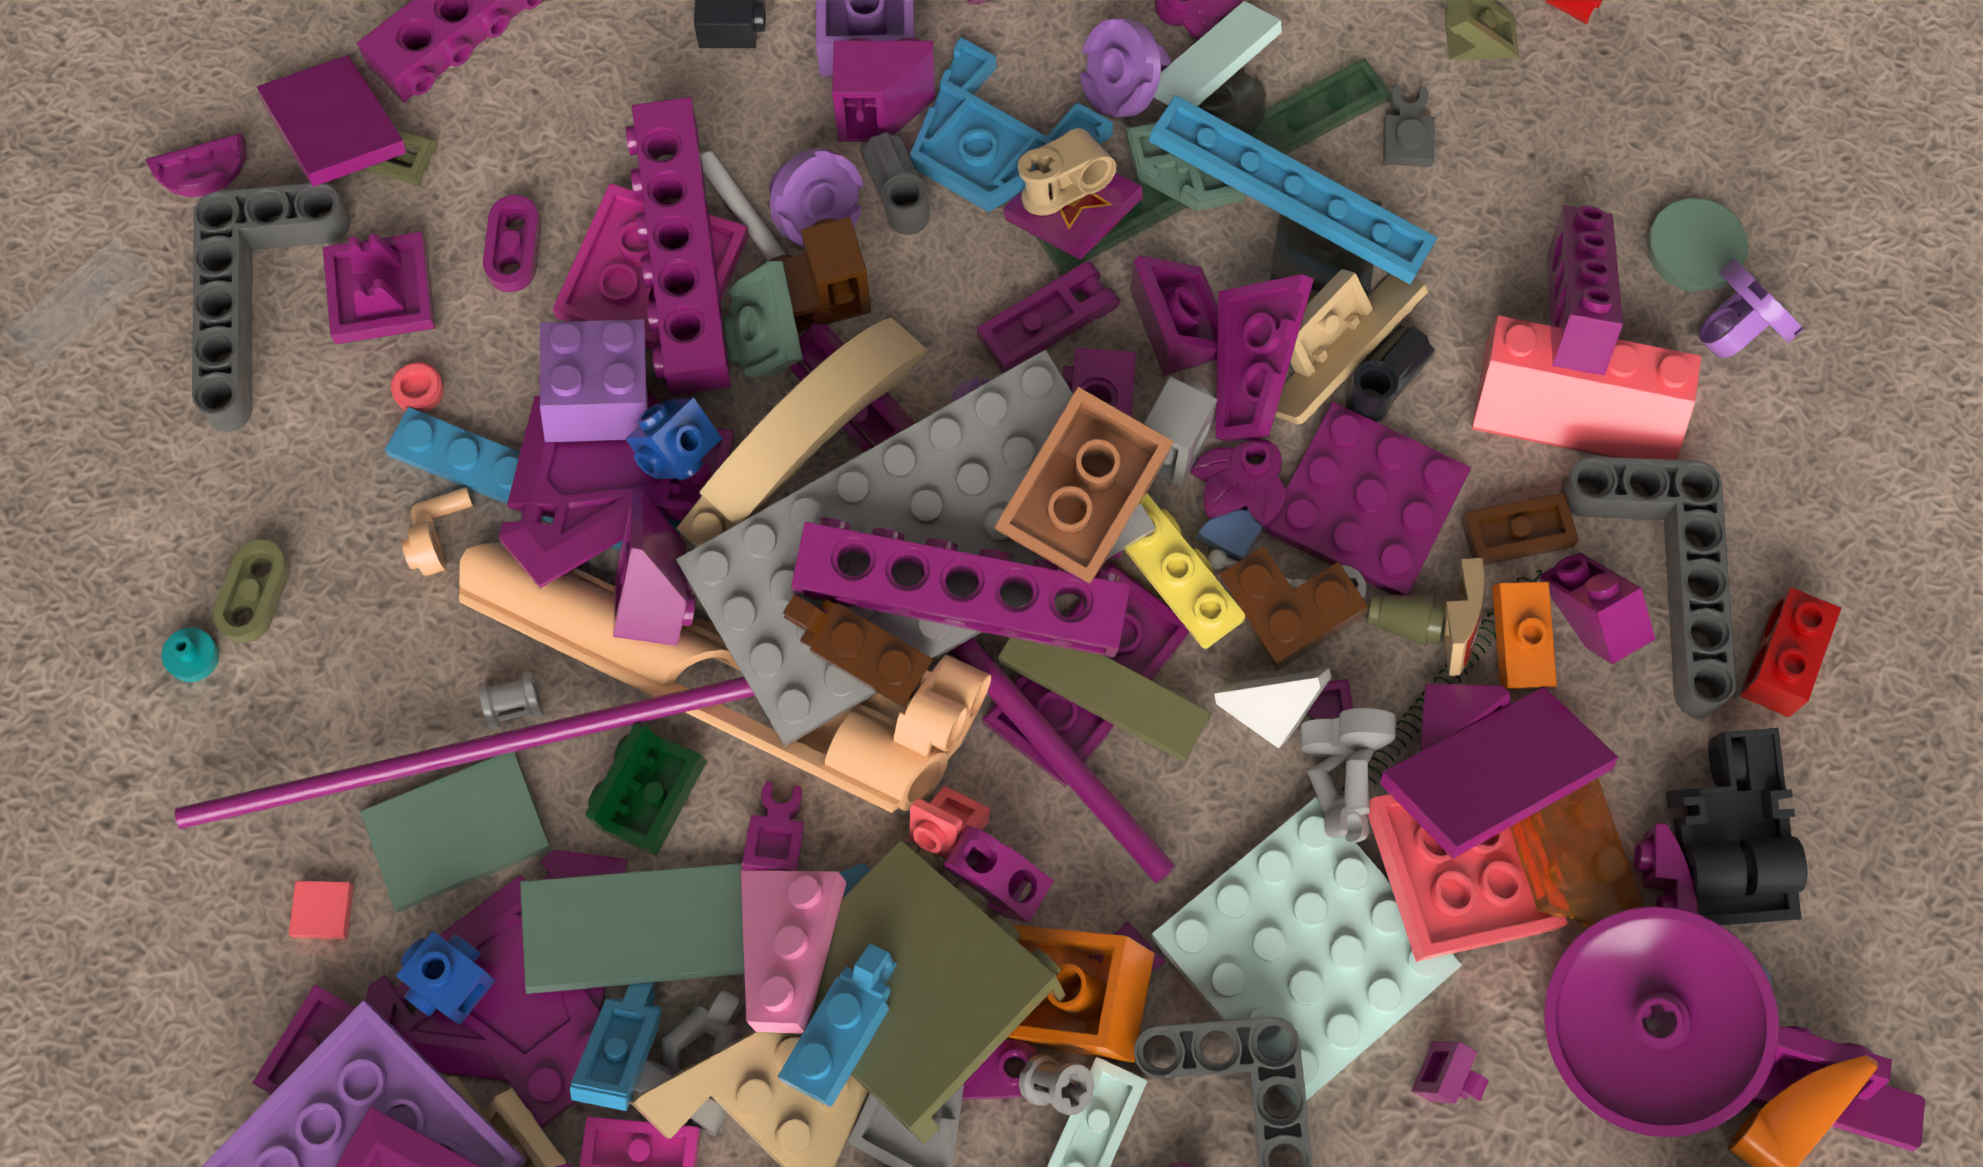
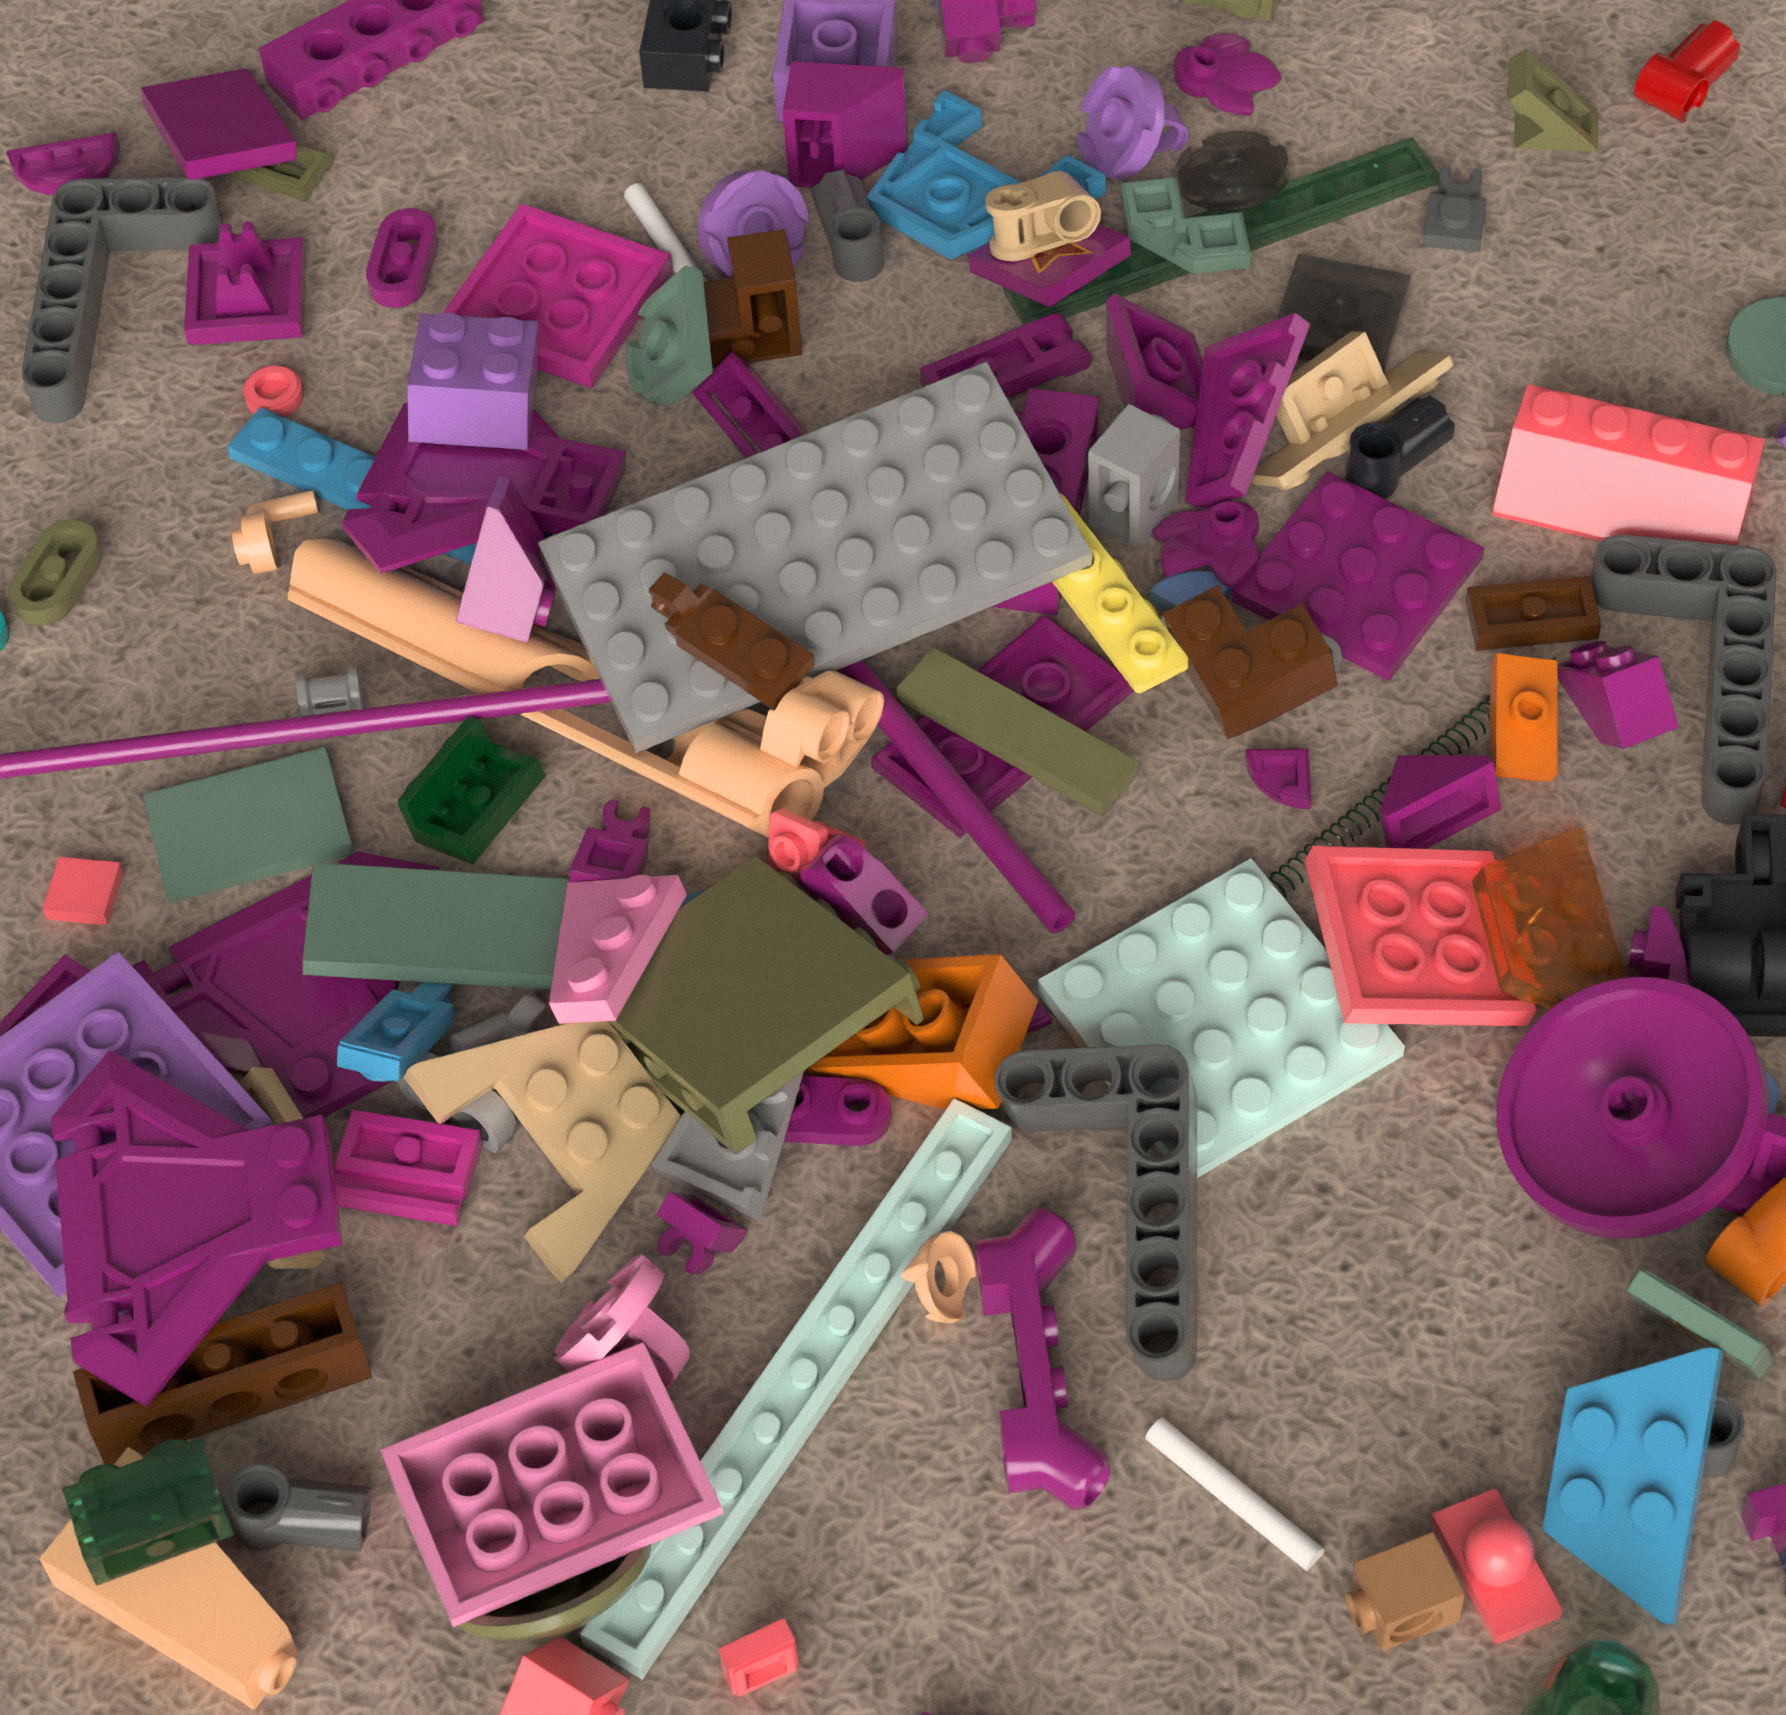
camera: 10 degrees right, 15 degrees down
(444, 976) = (213, 947): blue brick -> none
(673, 439) = (553, 438): blue brick -> none
(703, 361) = (590, 262): magenta brick -> none
(800, 425) = (704, 419): tan arch -> none
(820, 578) = (872, 609): magenta brick -> none
(841, 1028) = (657, 1015): dark azure hinge -> none
(1064, 1096) = (903, 1107): light grey bush -> none
(1084, 485) = (1011, 476): nougat slope -> none
(1218, 55) = (1235, 122): light aqua tile -> none
(1274, 703) = (1220, 757): white slope -> none
(1292, 189) = (1305, 248): dark azure plate -> none
(1350, 736) = (1282, 801): light grey piece -> none
(1409, 616) = (1390, 690): olive cone -> none
(1448, 1075) = (1375, 1155): magenta tile -> none
(1463, 616) = (1452, 687): tan slope -> none
(1498, 771) = (1468, 835): magenta tile -> none
(1584, 290) = (1628, 357): magenta brick -> none

